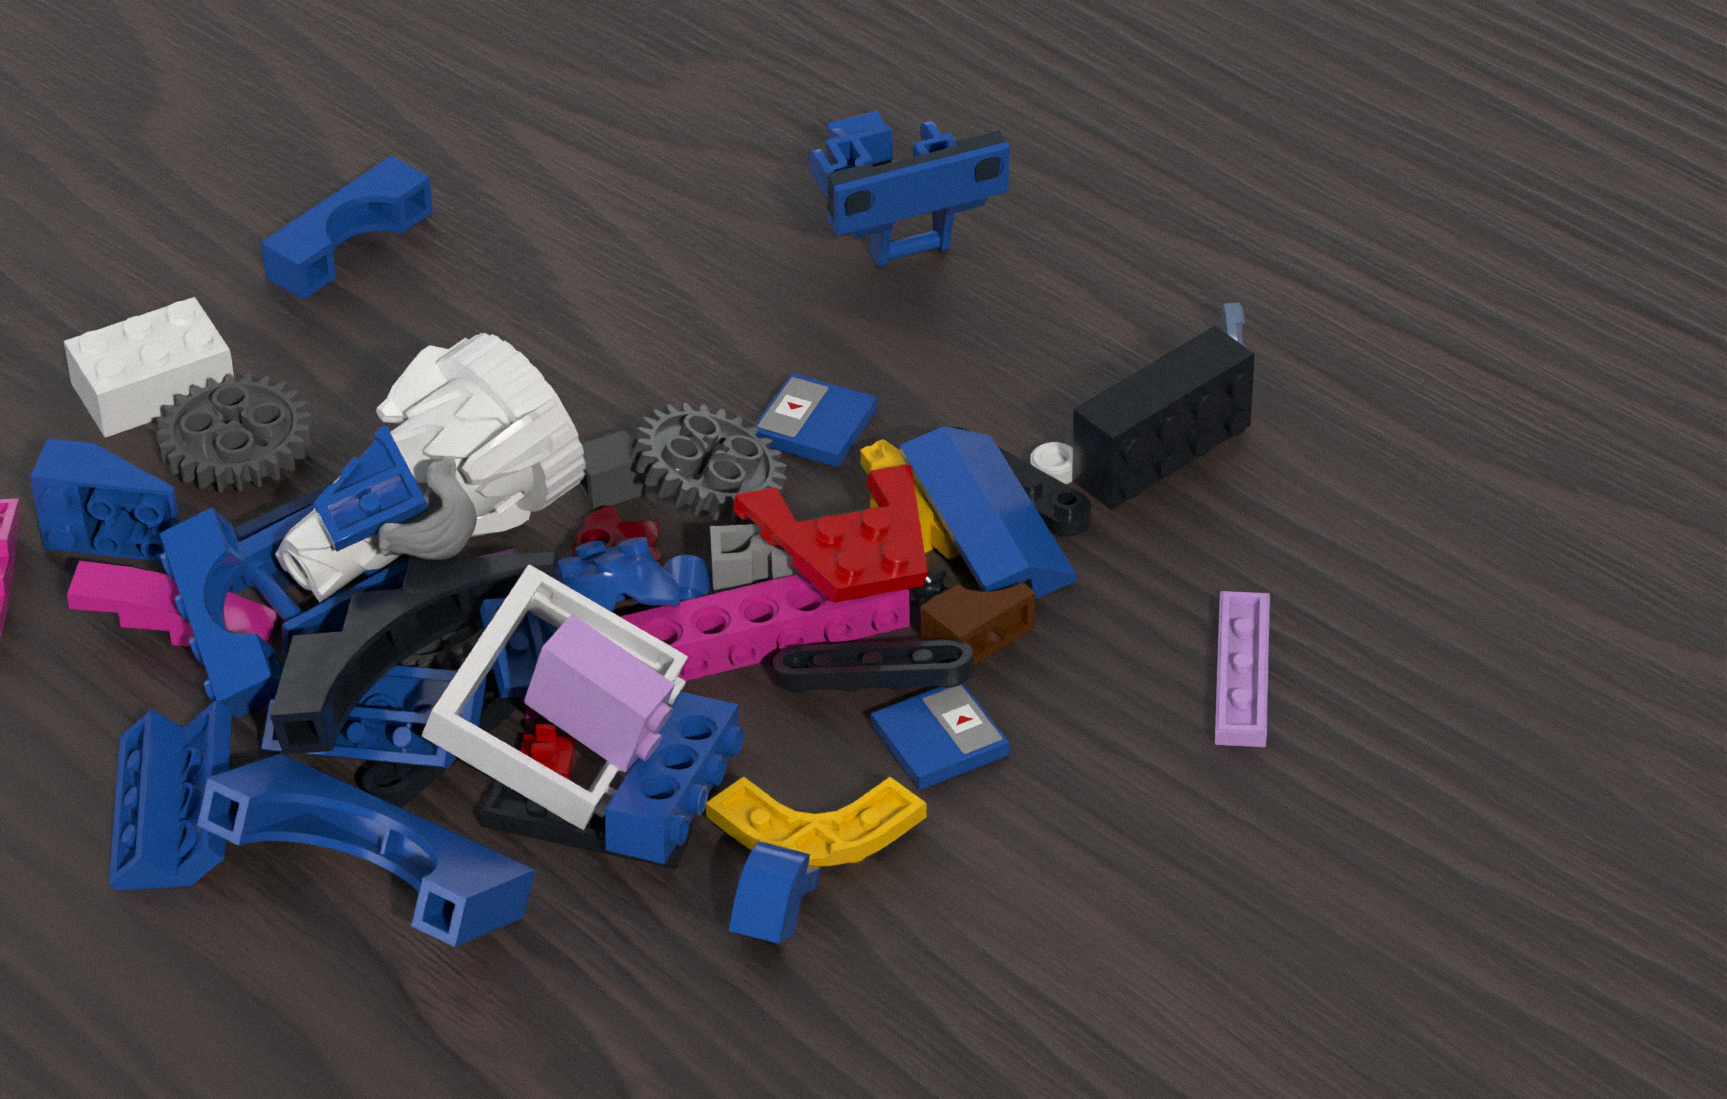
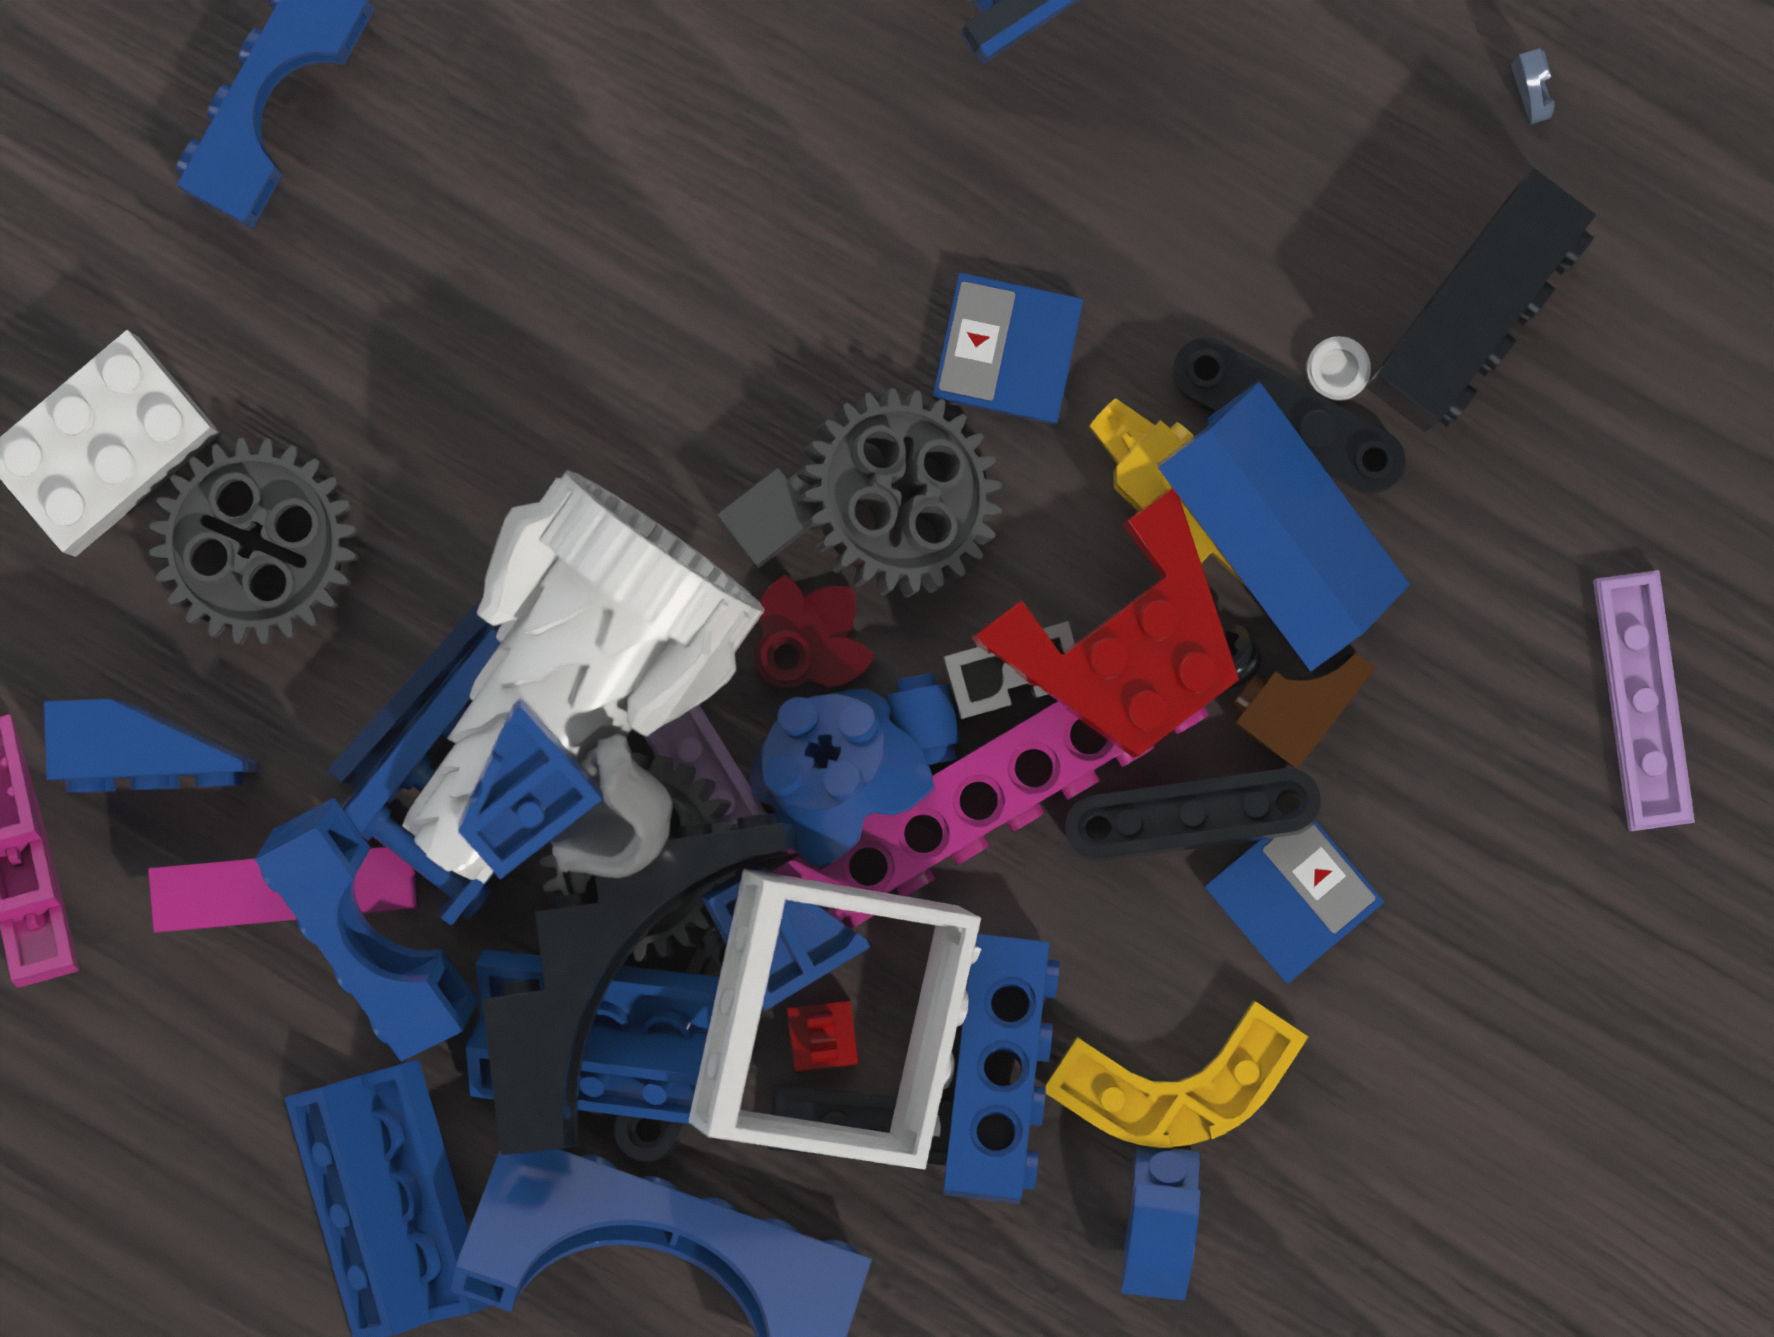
camera: 15 degrees left, 45 degrees up
(600, 694) = (910, 1074): lavender brick -> none

